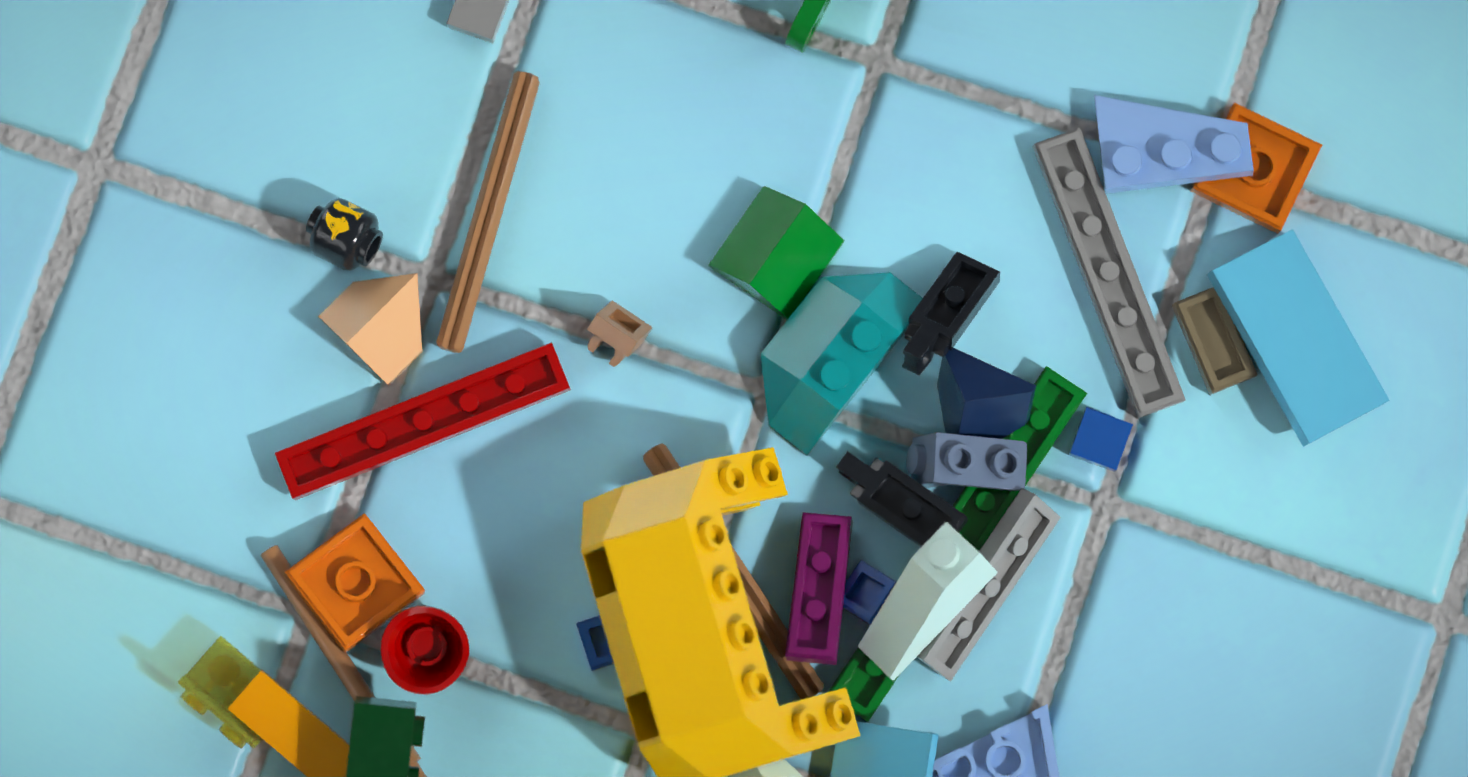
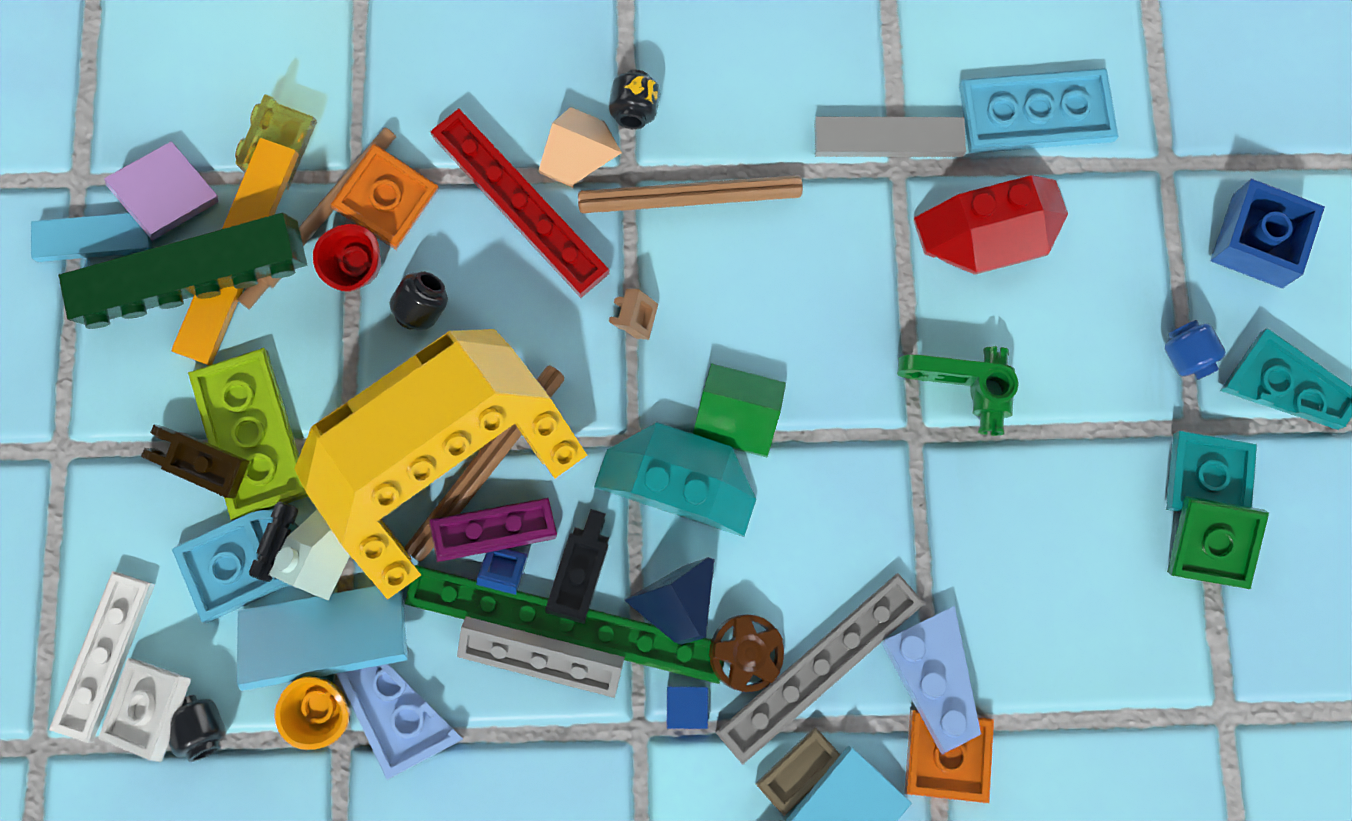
camera: 65 degrees right, 5 degrees down
(509, 583) = (418, 300): none -> black head
(925, 599) = (509, 611): light aqua slope -> none
(947, 310) = (741, 549): black hinge -> none
(967, 461) = (630, 609): sand blue bracket -> none
(1064, 348) = (747, 653): none -> reddish brown wheel

